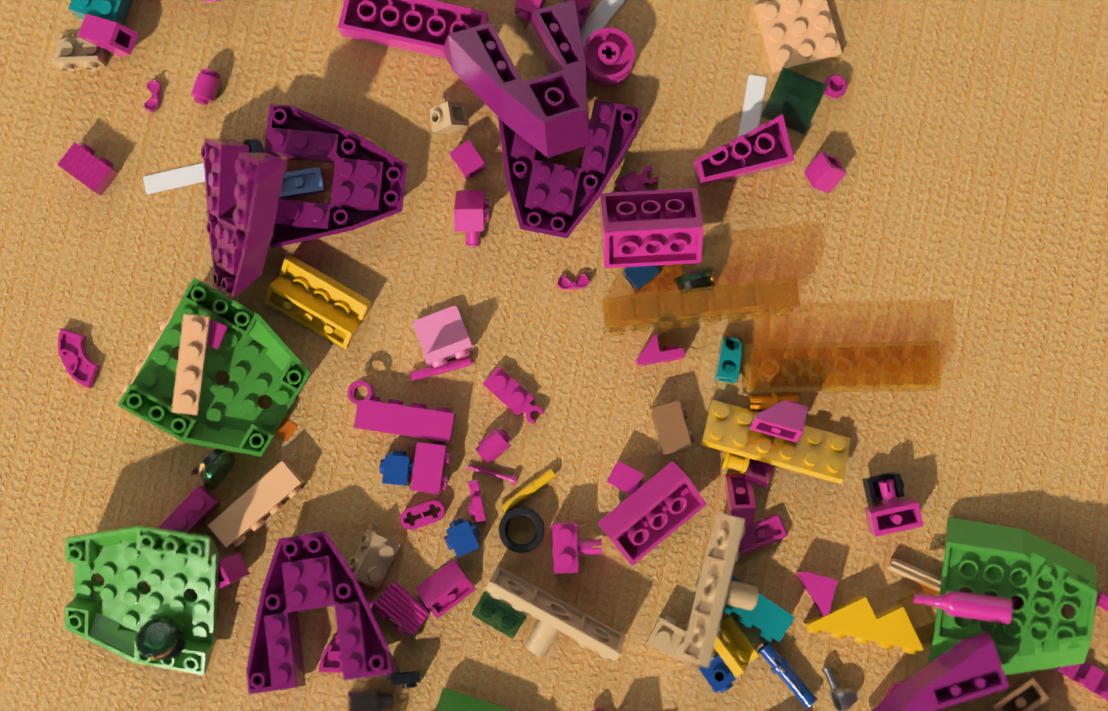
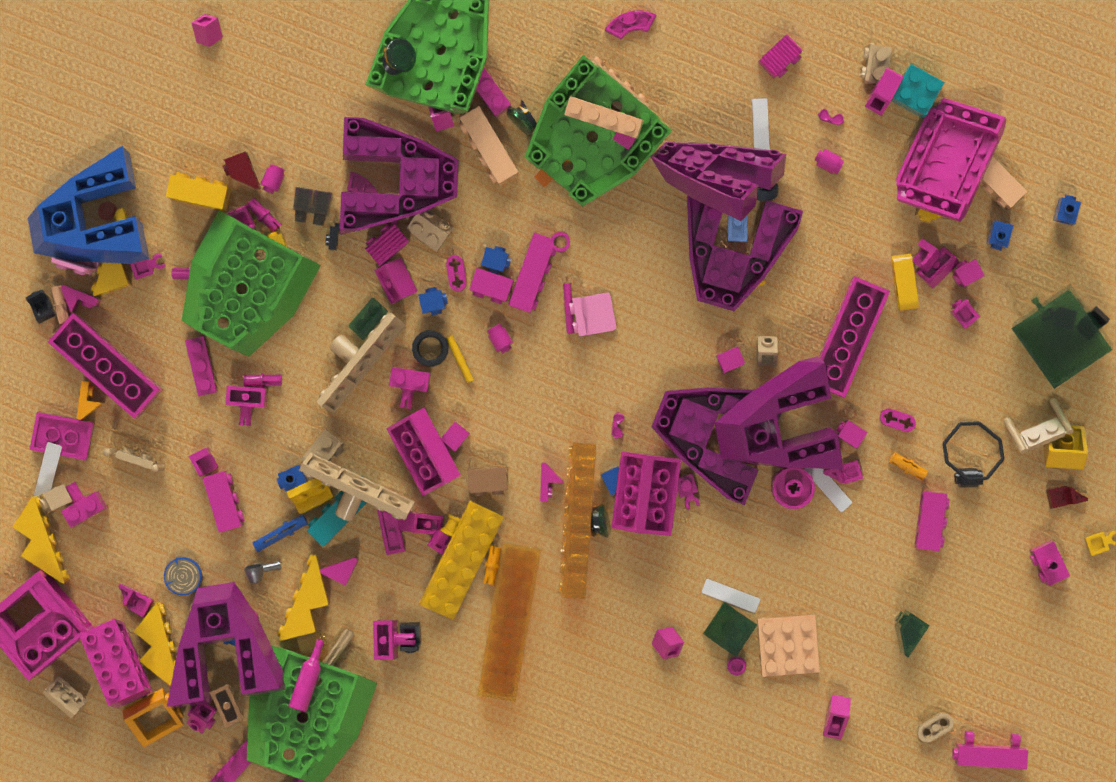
camera: 100 degrees right, 5 degrees up
(317, 301) = (639, 220): yellow slope -> none
(470, 214) = (685, 355): dark pink brick -> none
(476, 508) = (453, 316): dark pink plate -> none
(511, 394) = (538, 360): dark pink plate -> none
(513, 478) = (477, 335): dark pink piece -> none
(729, 360) = (532, 536): teal leg -> none
(749, 154) = (693, 586): dark pink wedge -> none
(782, 420) = (476, 566): dark pink slope -> none

